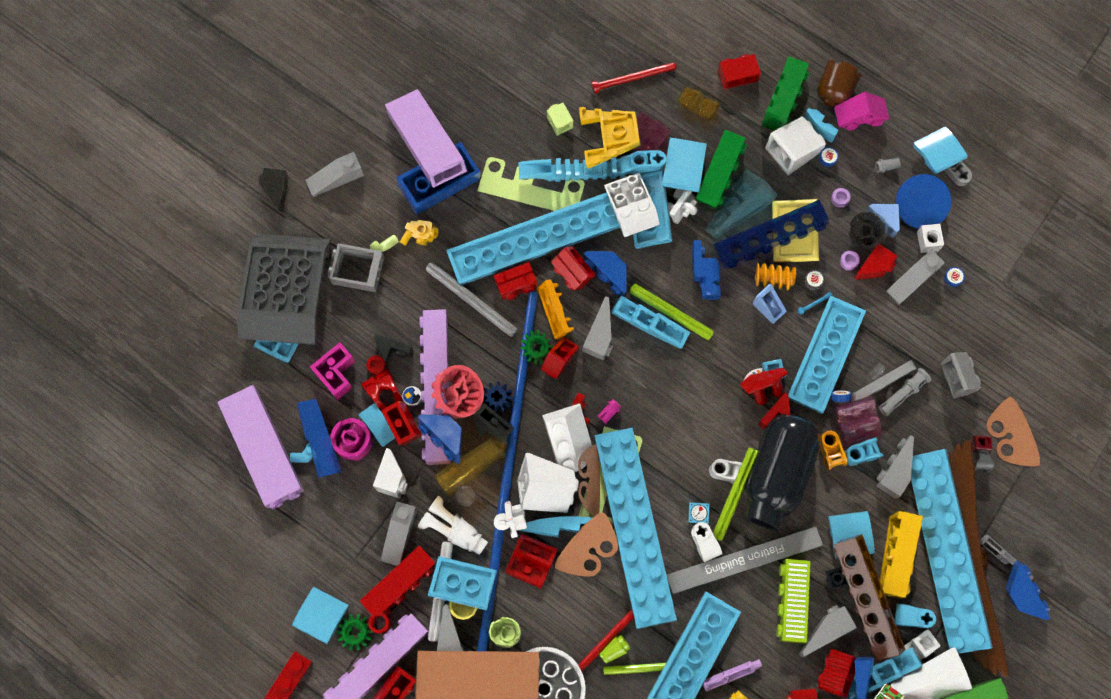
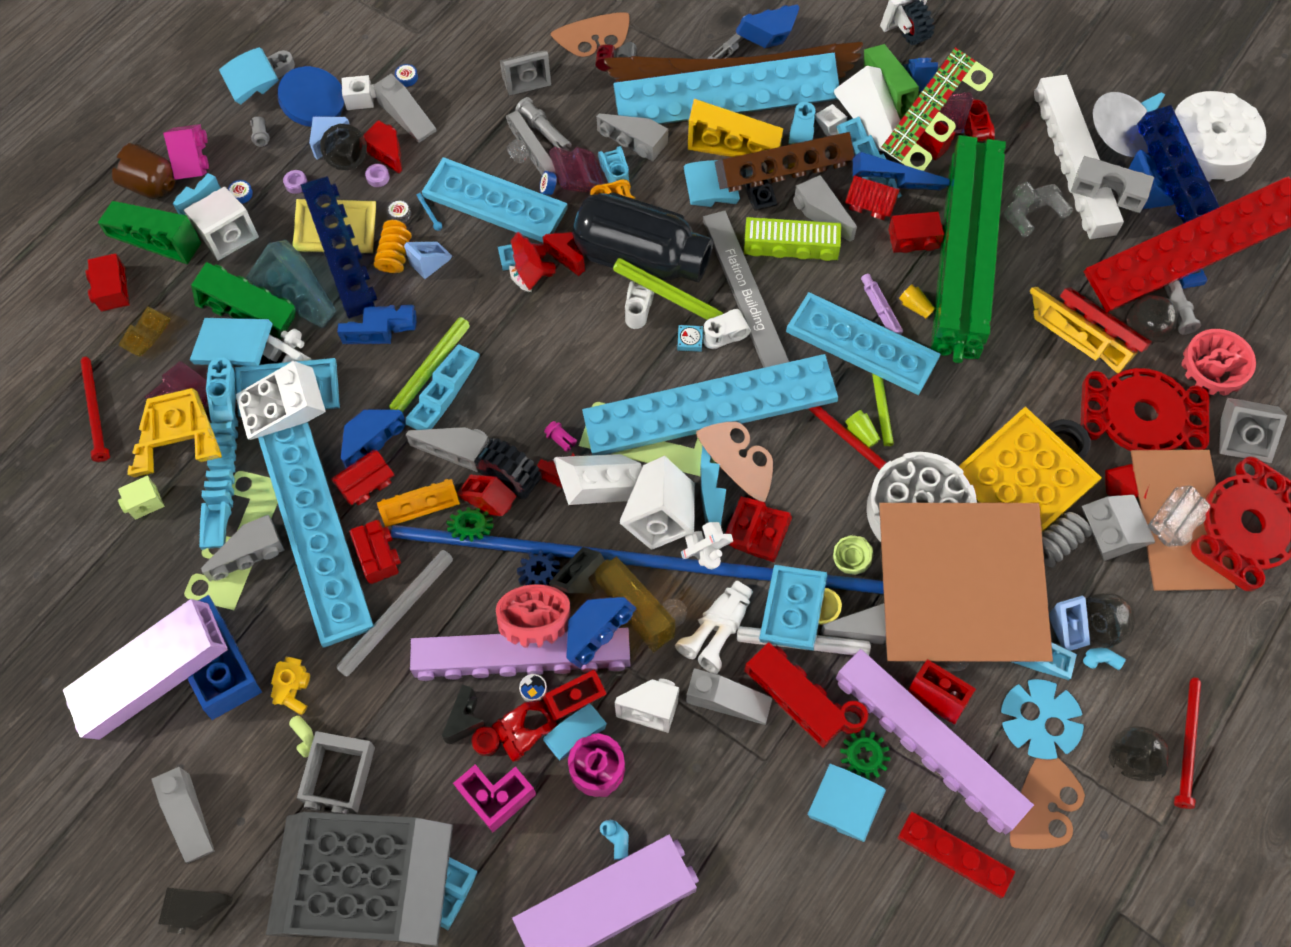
camera: 90 degrees left, 10 degrees down
(317, 434) = (583, 820): blue slope -> none
(523, 196) = (248, 545): none -> light grey slope
(574, 371) = (509, 467): none -> black bush
(592, 501) = (680, 453): nougat piece -> none

